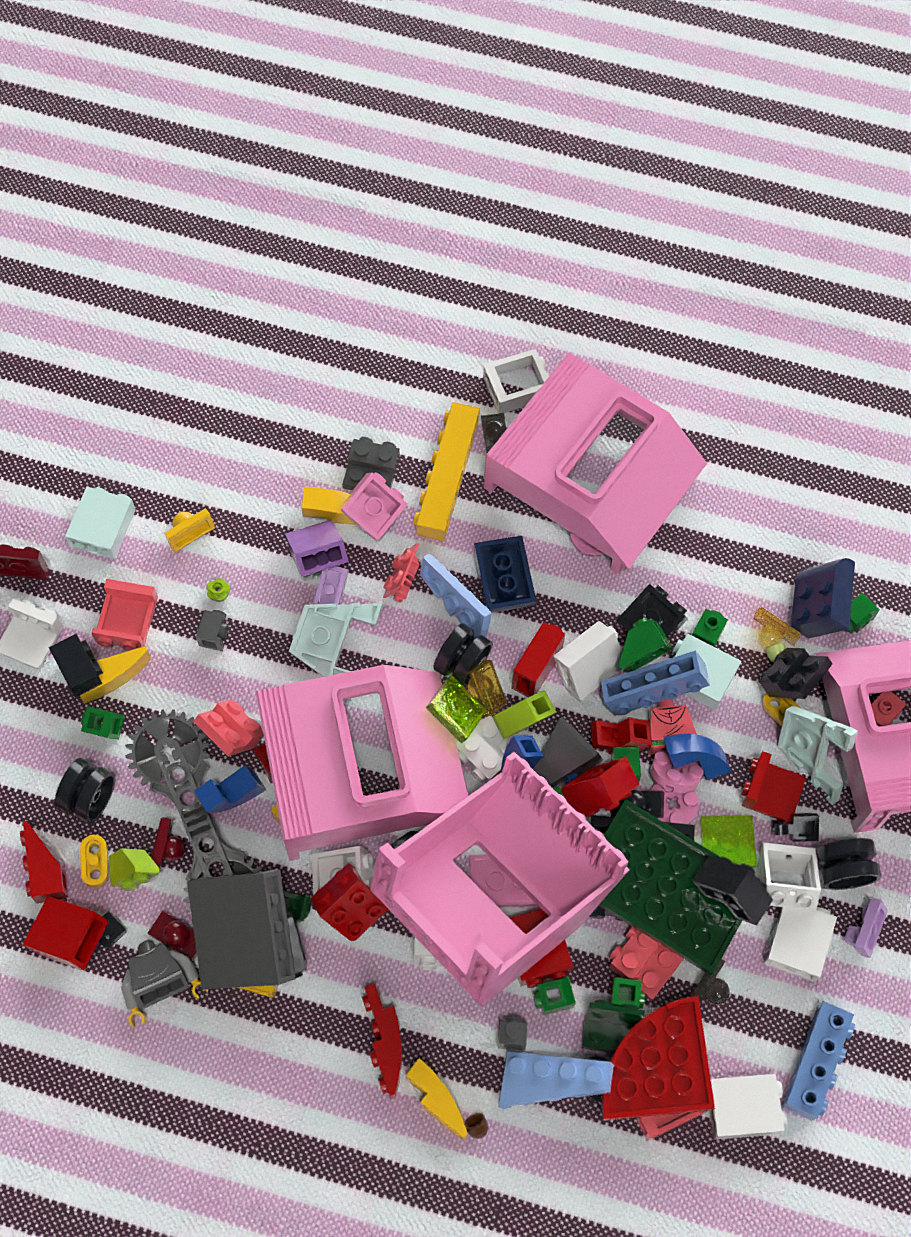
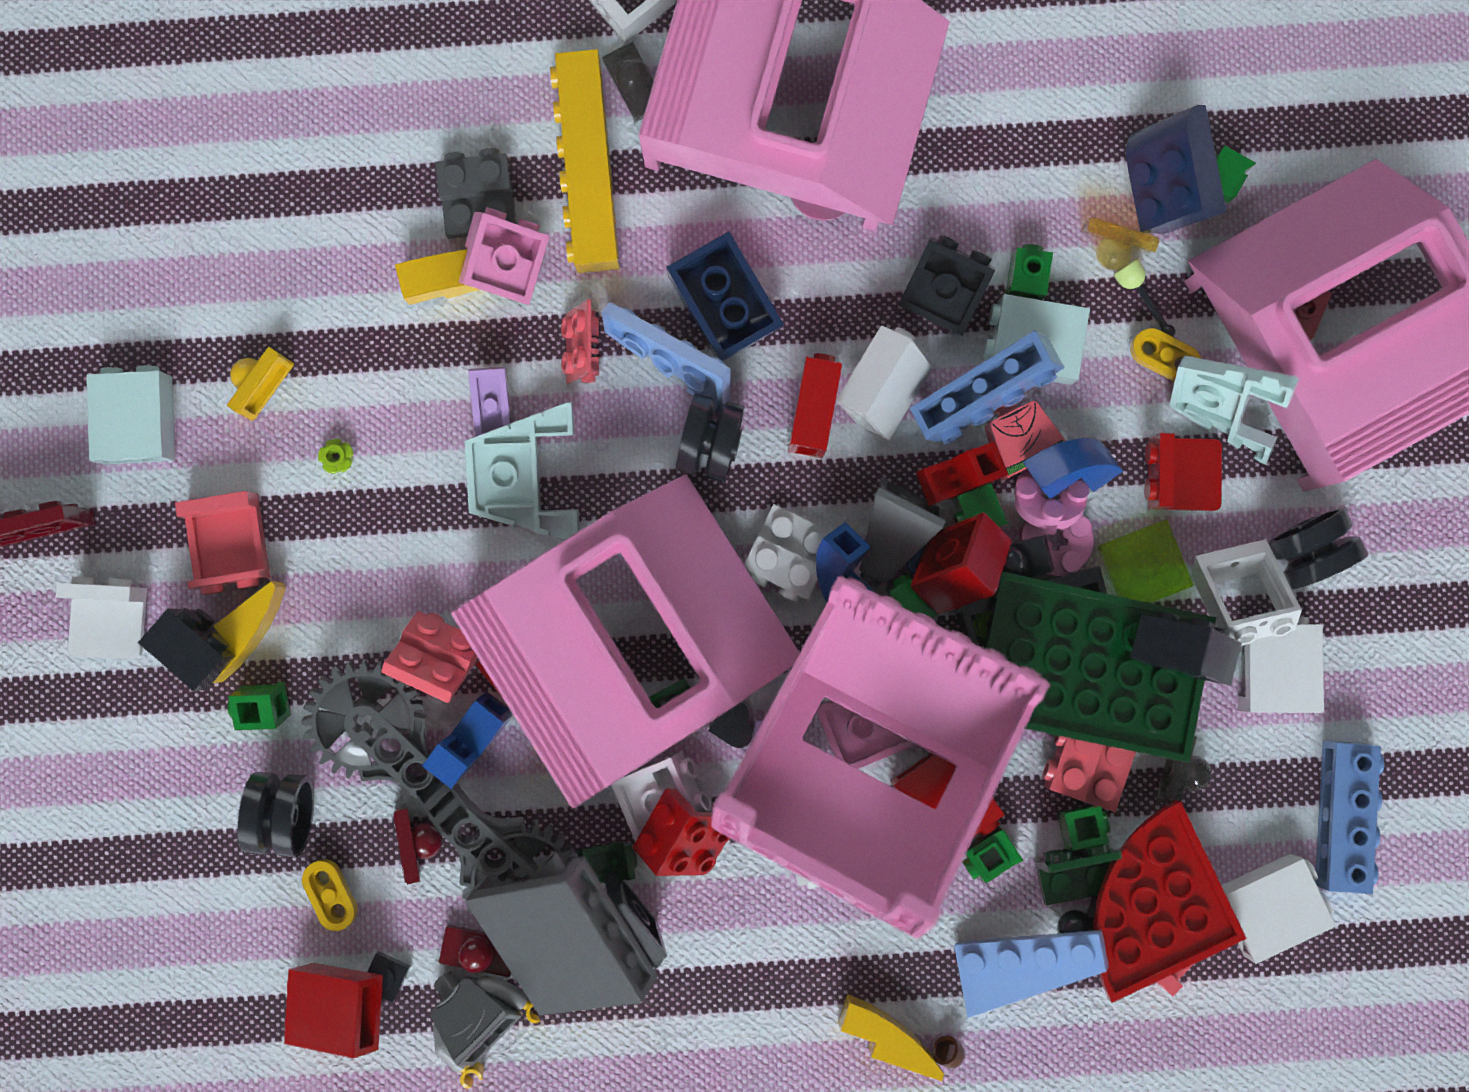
camera: 15 degrees left, 20 degrees up
(44, 871) = (269, 931): red slope -> none
(131, 868) = (383, 893): lime slope -> none
(212, 630) = (352, 518): dark grey brick -> none
(316, 547) = (448, 352): medium lavender brick -> none
(388, 1050) = (804, 1000): red slope -> none
(456, 709) = (729, 522): clear neon green plate -> none
(486, 687) = (757, 470): clear yellow tile -> none
(512, 1034) = (956, 924): dark grey brick -> none
(524, 714) = (822, 492): lime slope -> none
(643, 645) = (954, 335): green slope -> none
(794, 674) = (1172, 305): black plate -> none
(801, 827) = (1235, 515): black plate -> none
(865, 937) = (1360, 634): lavender hinge -> none

